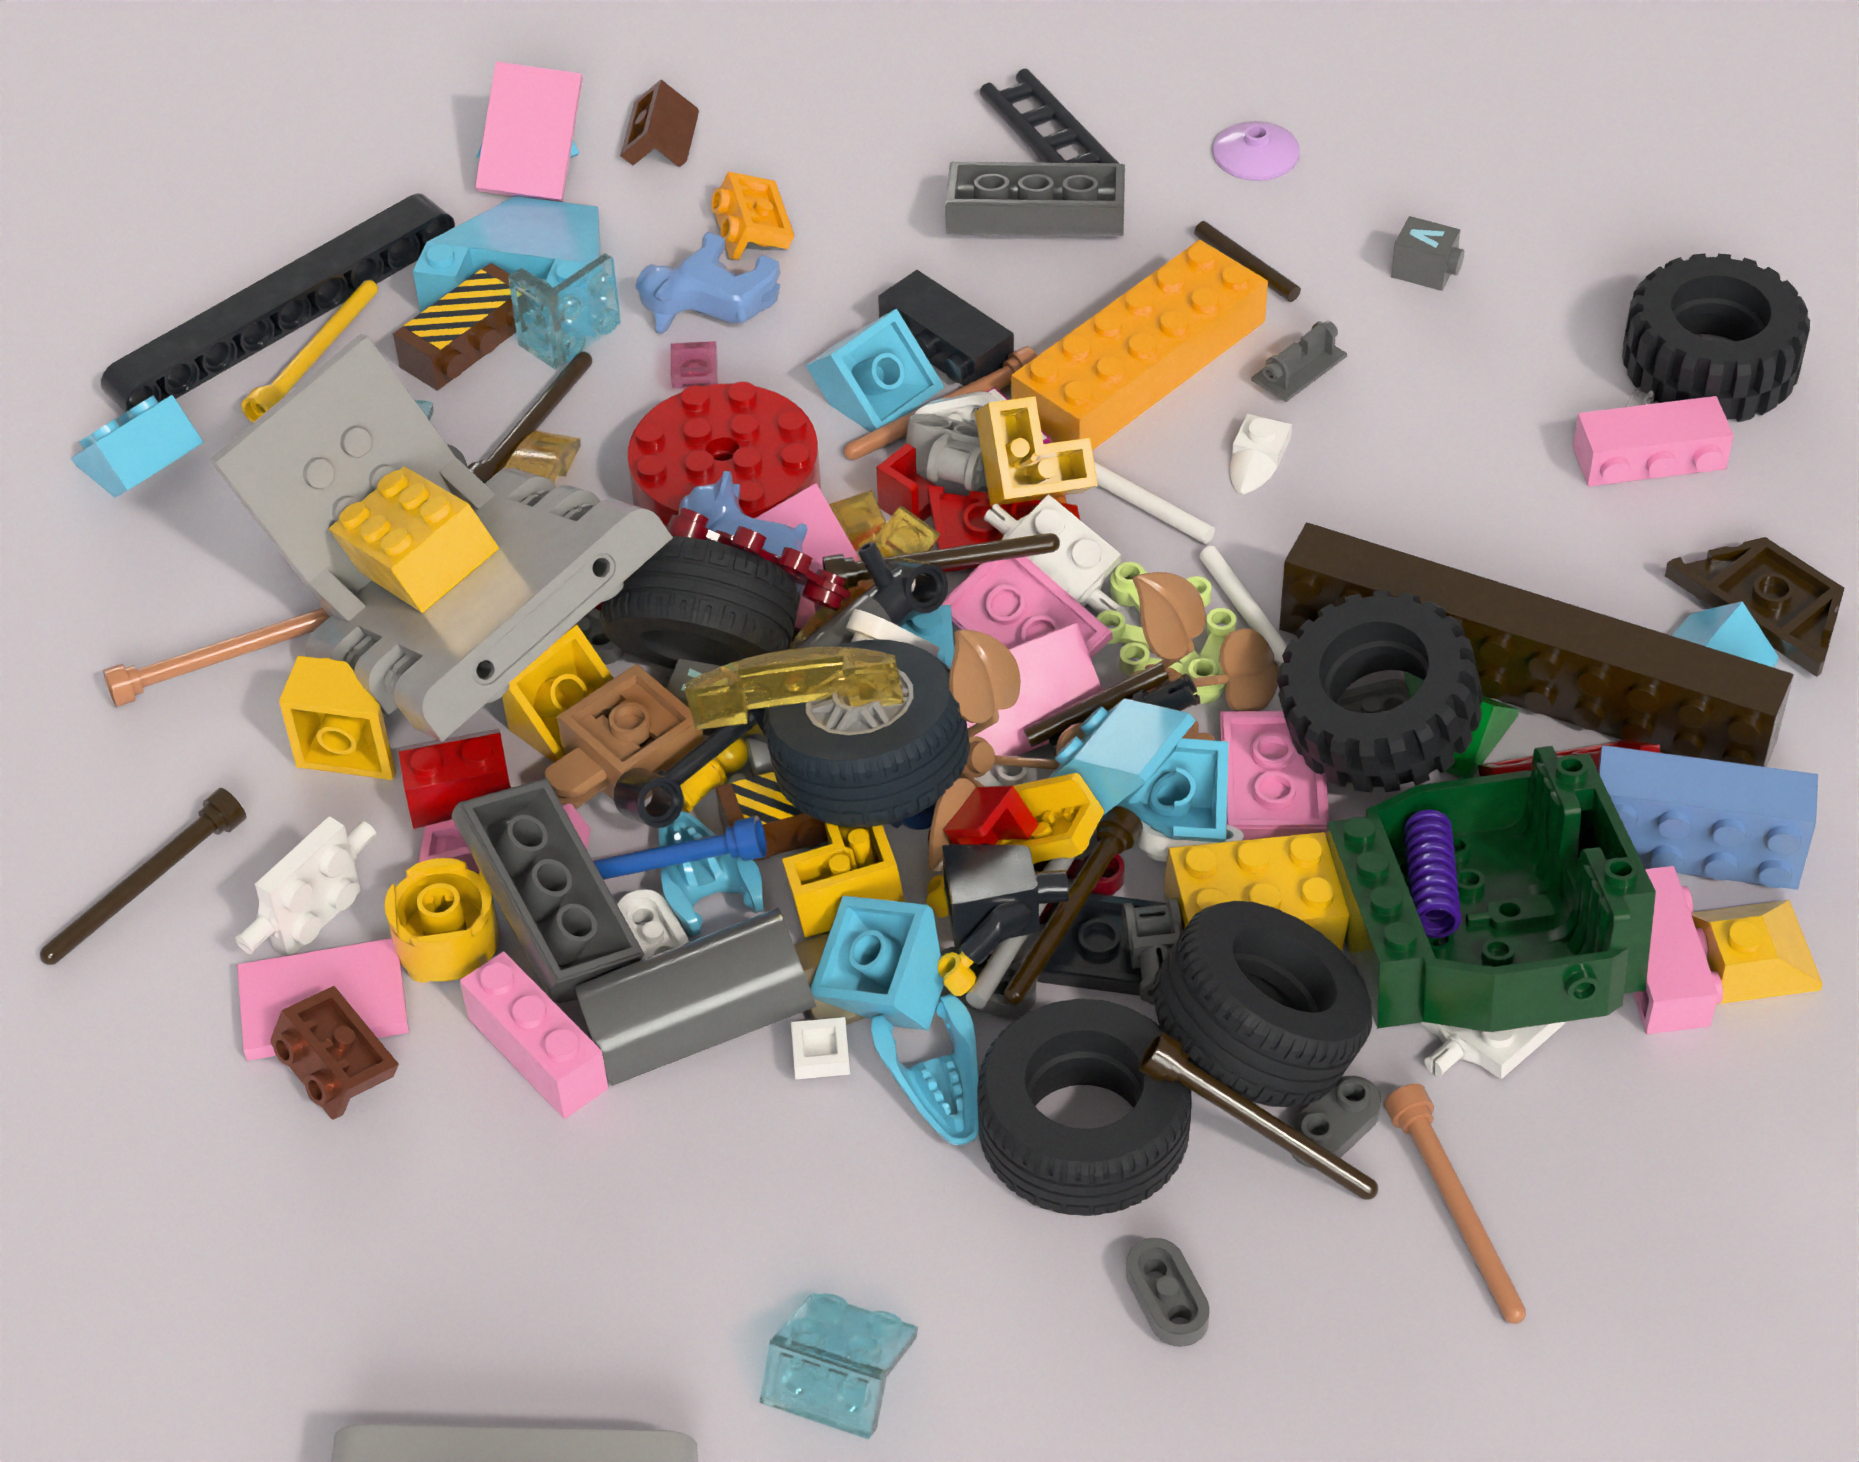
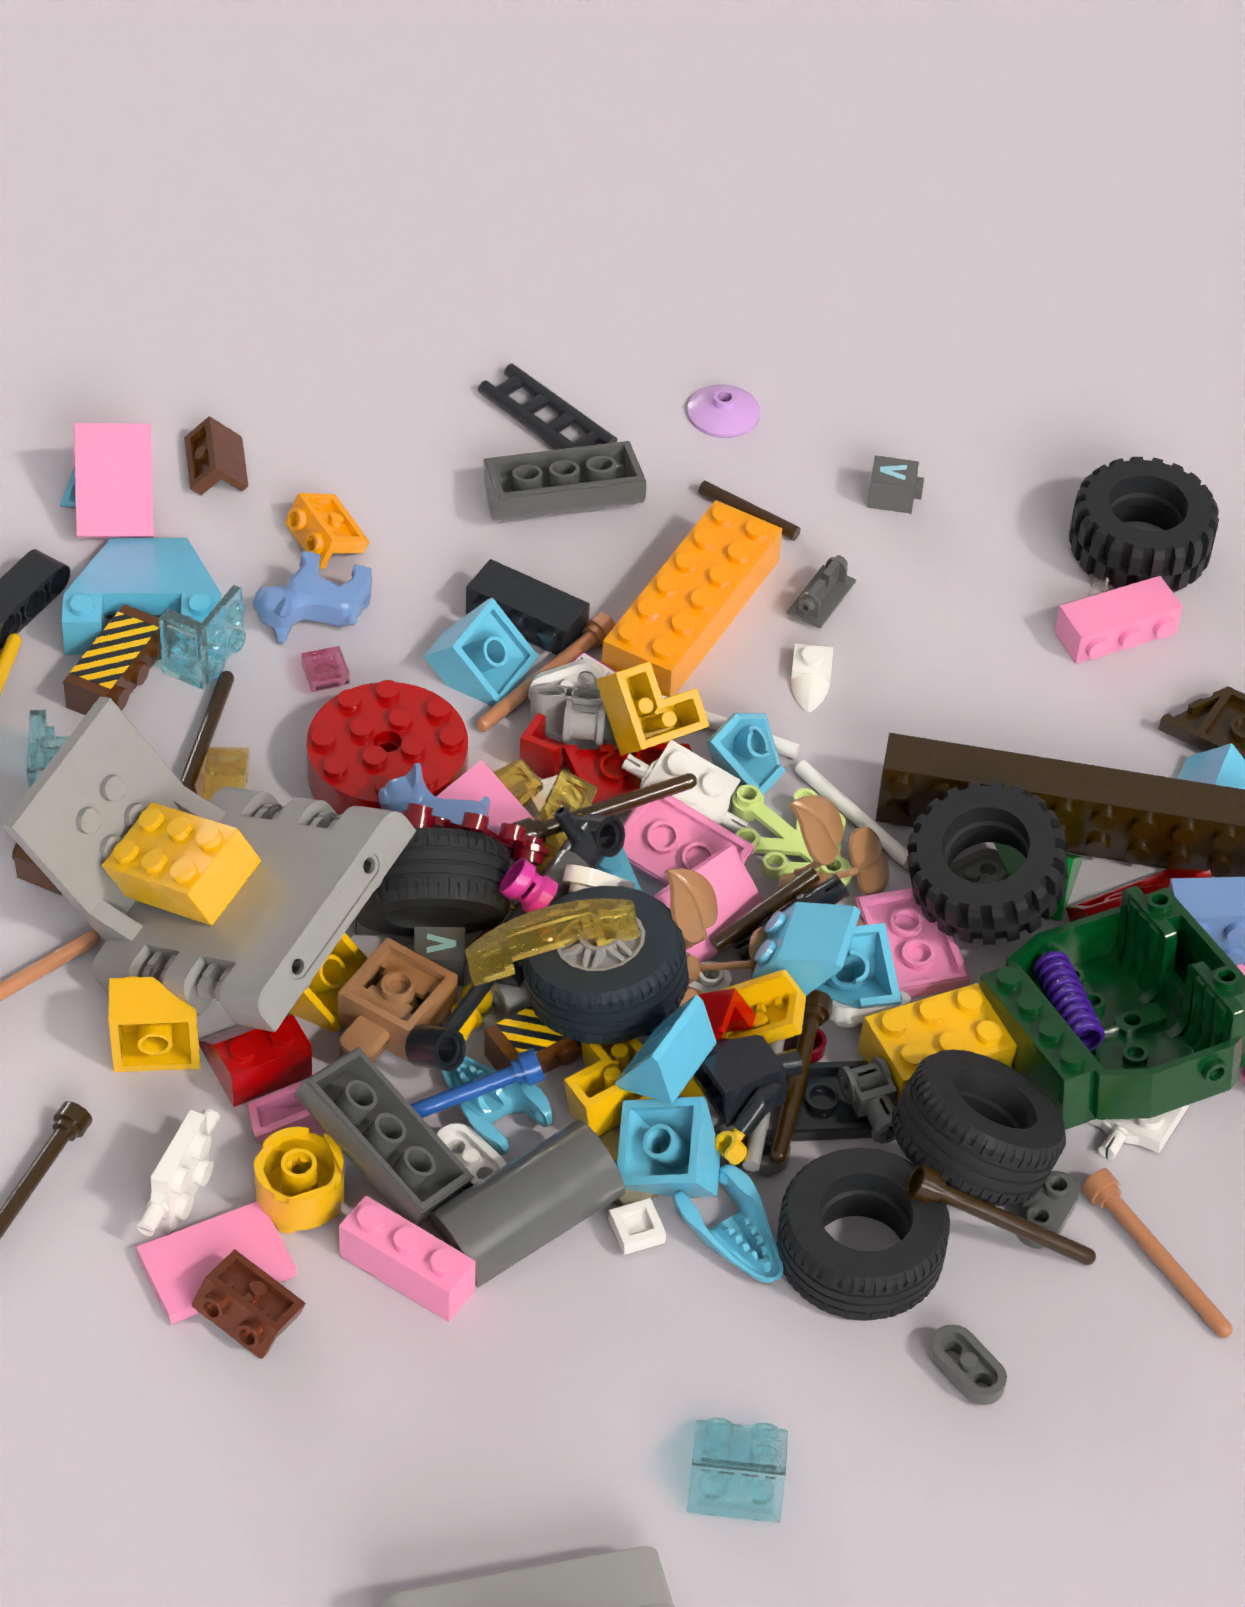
camera: 20 degrees left, 0 degrees up
(809, 633) = (527, 886): none -> dark pink wheel
(907, 848) = (670, 1054): none -> medium azure slope
(1143, 521) = (747, 750): none -> medium azure slope

